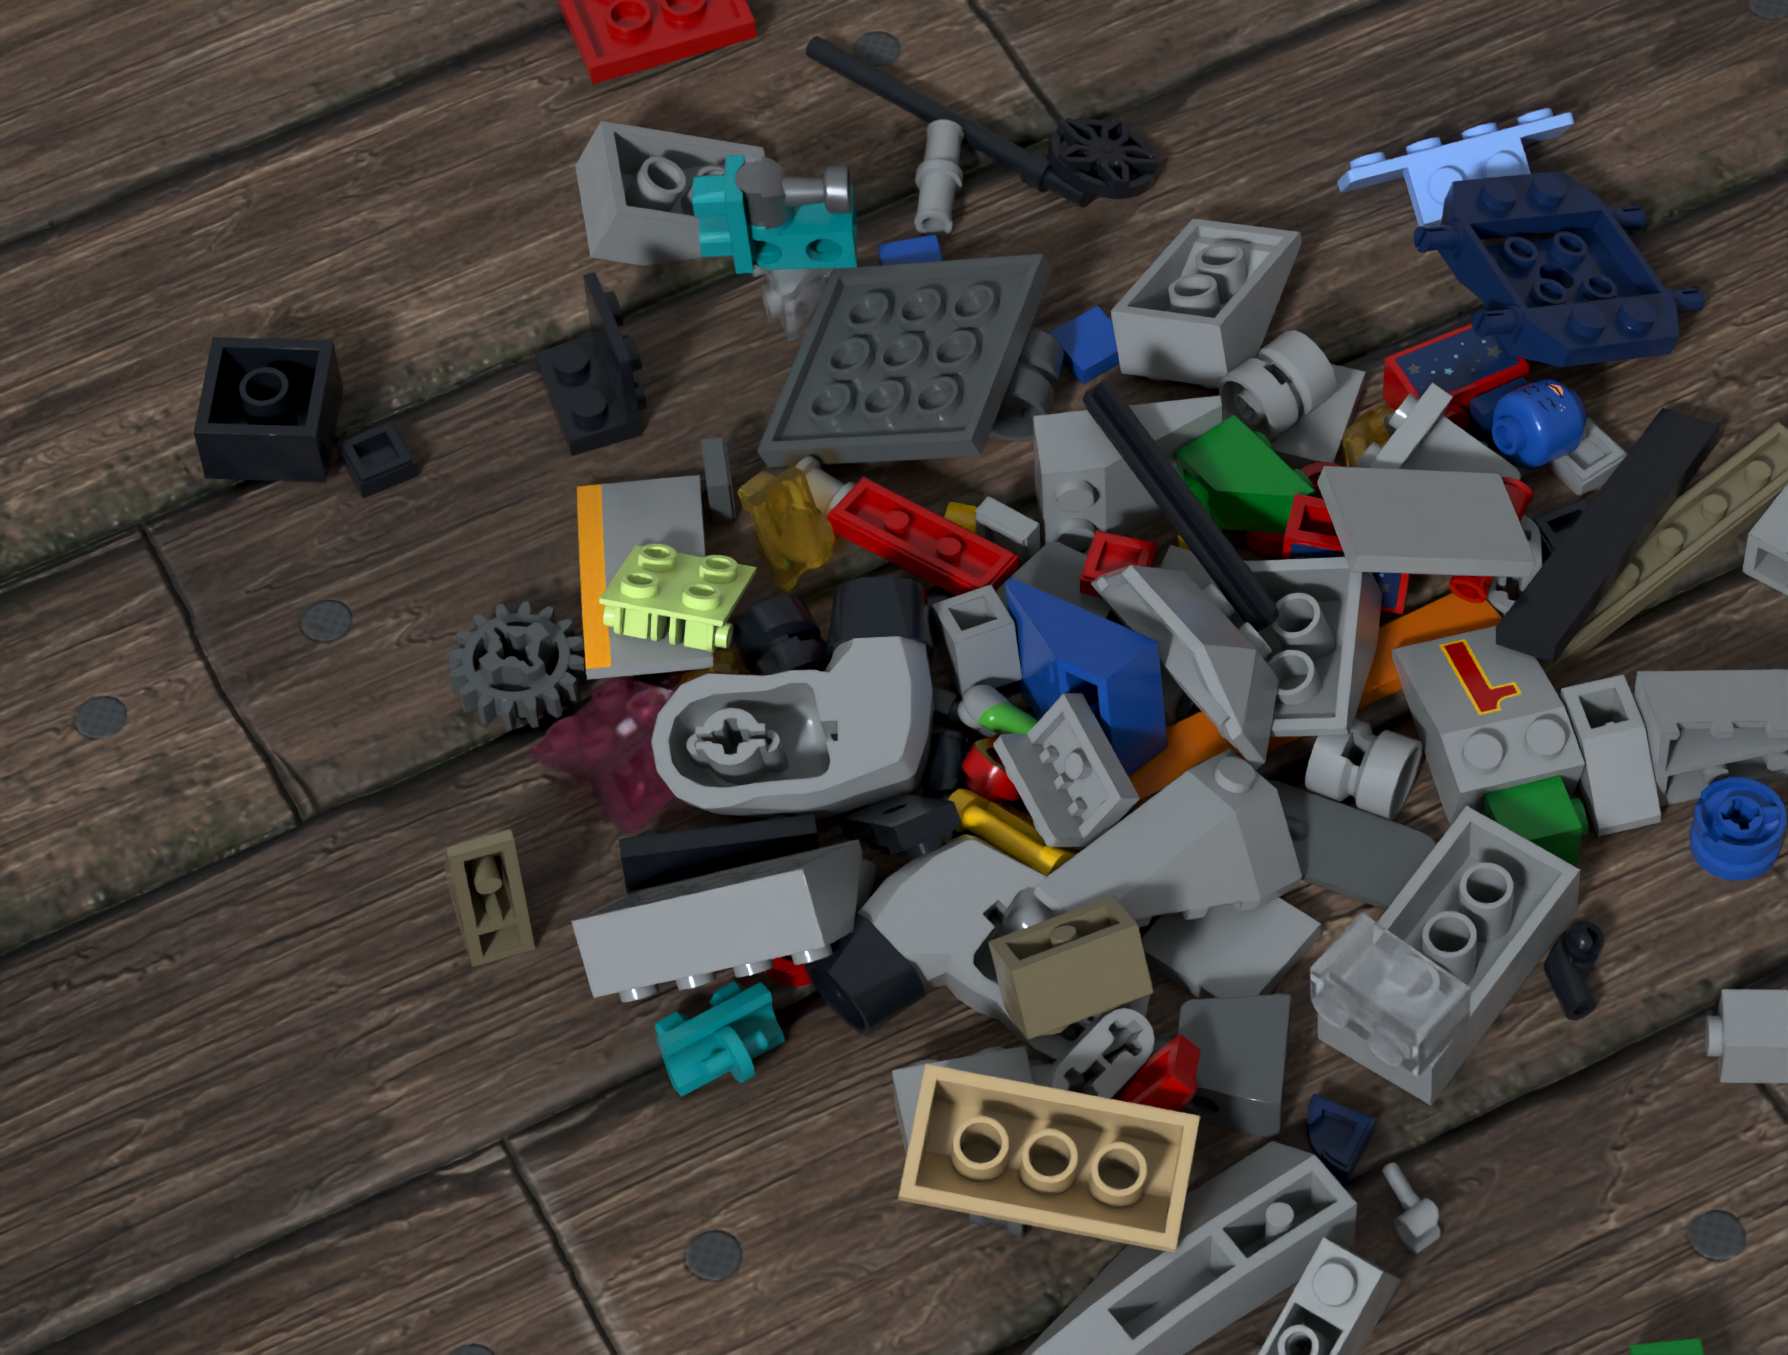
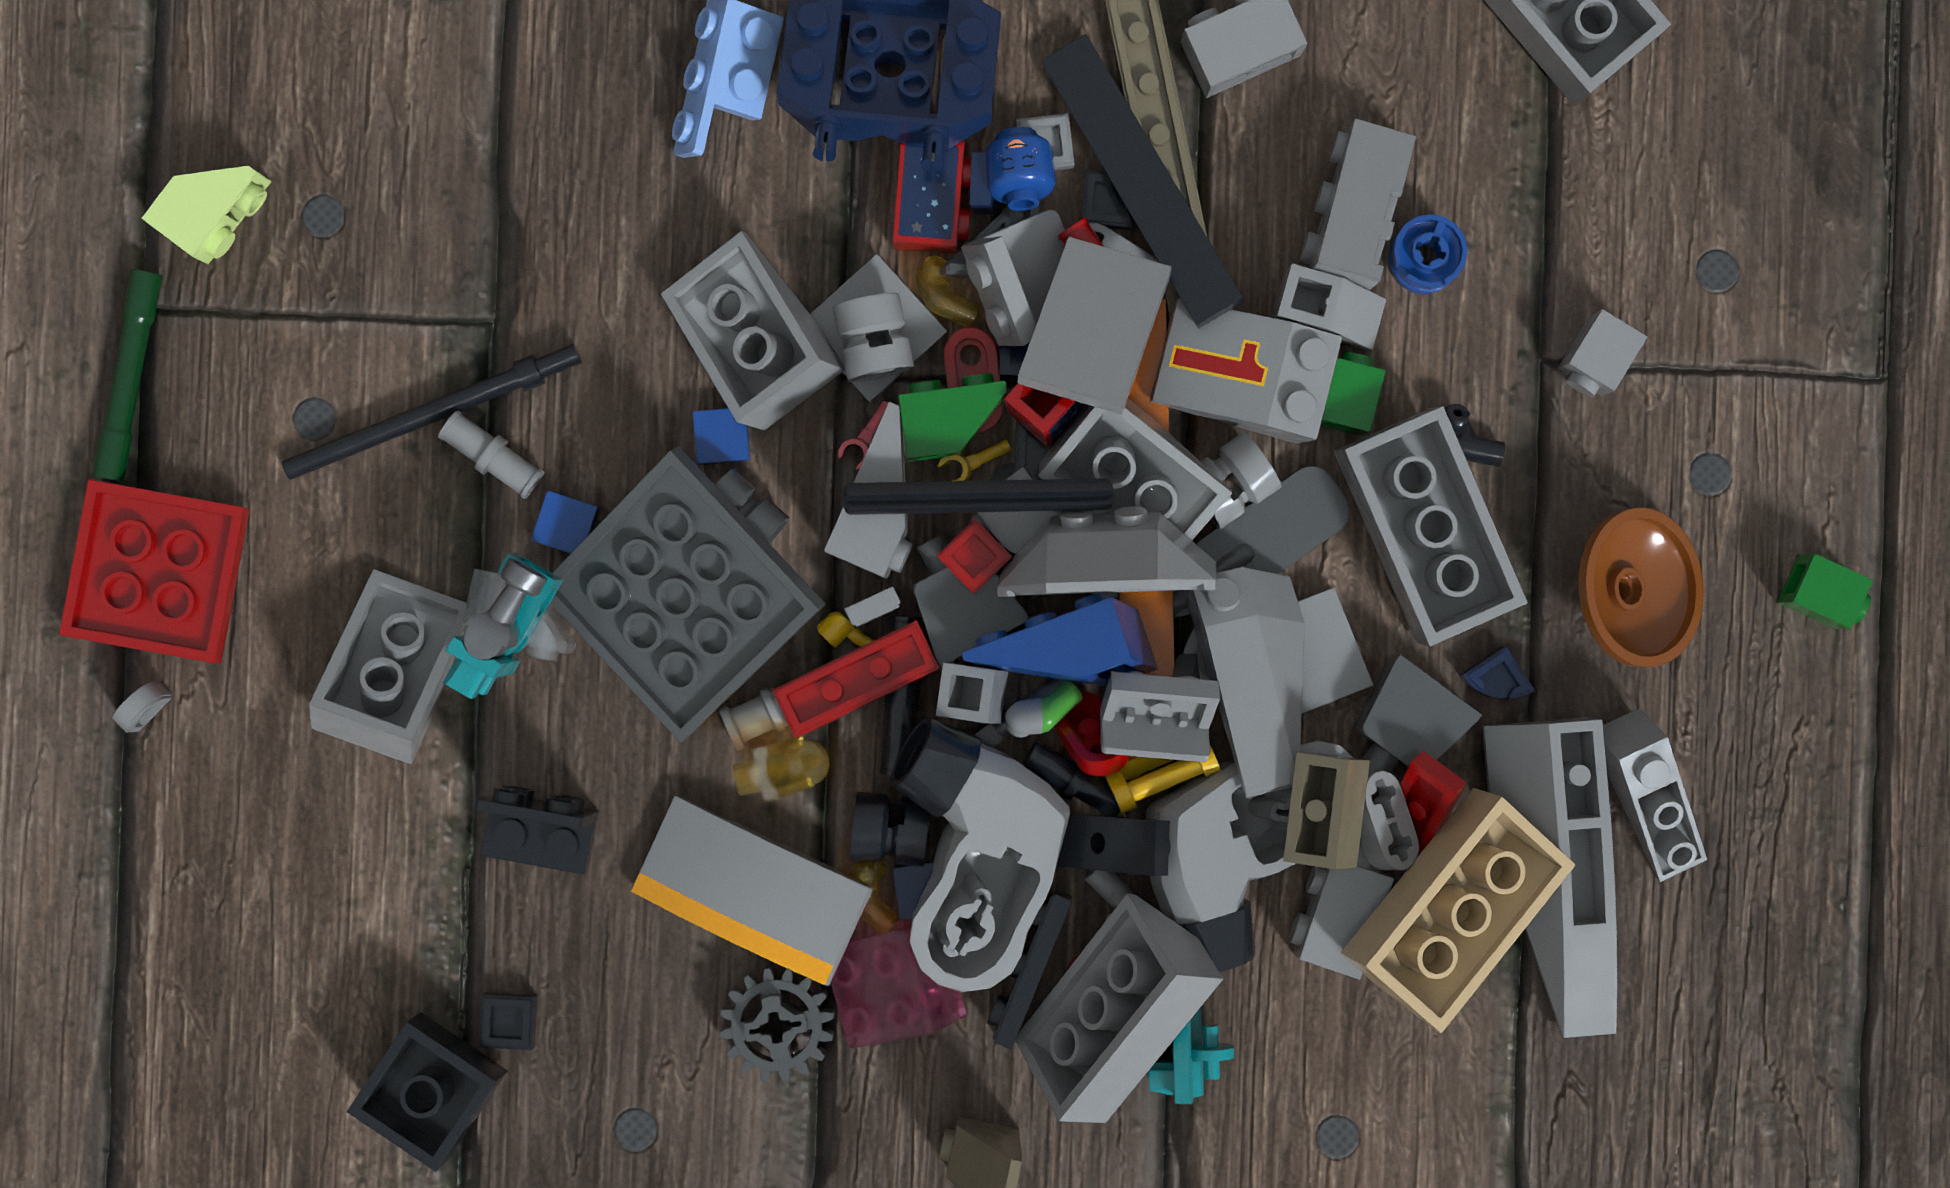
camera: 65 degrees left, 35 degrees up
(511, 41) = (142, 706): none -> light grey tile
(664, 584) = (805, 888): yellowish green hinge -> none
(718, 481) = (693, 787): dark grey tile -> none
(1105, 155) = (549, 320): black wheel -> none
(1389, 995) = (1477, 607): clear brick -> none
(1417, 1225) = (1598, 665): light grey hand -> none
(1571, 1182) = (1641, 587): none -> dark orange dish

